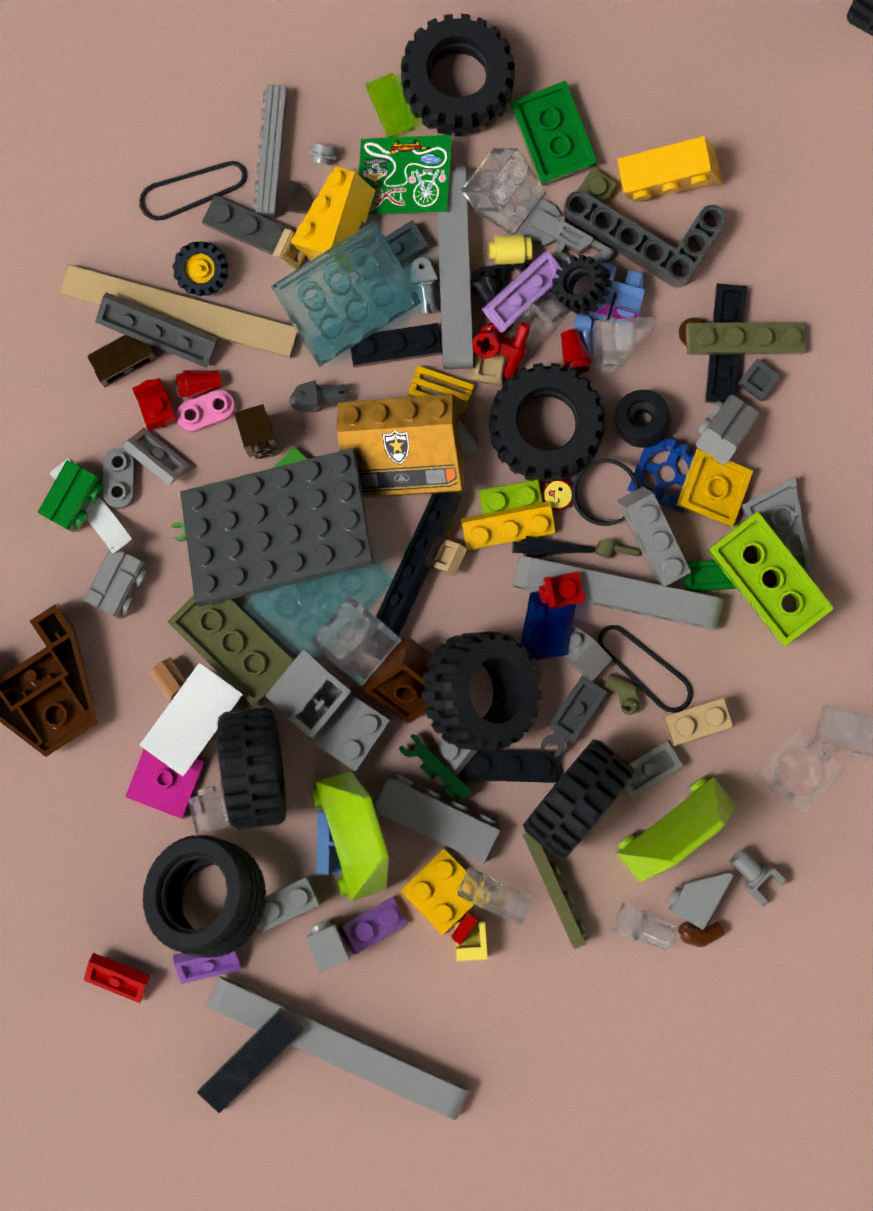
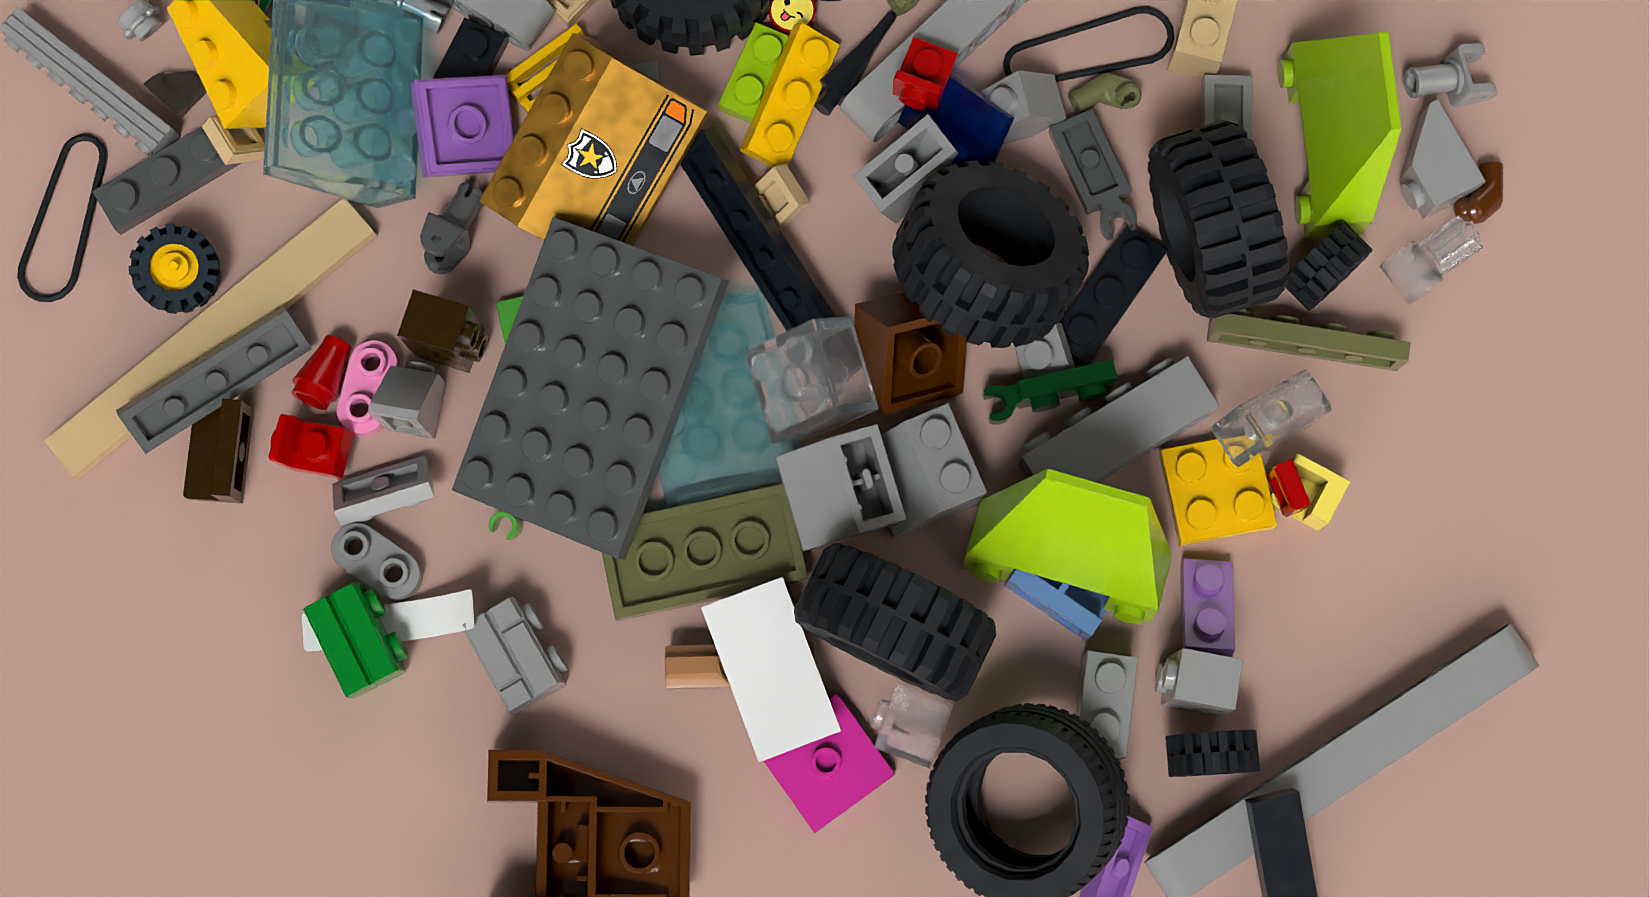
camera: 55 degrees left, 5 degrees down
(211, 438) = (409, 400): none -> light grey slope
(295, 976) = (1212, 753): none -> black tyre
(375, 364) = (462, 124): none -> medium lavender tile
(502, 615) = (901, 169): none -> light grey slope
(599, 873) = (1327, 266): none -> black tyre

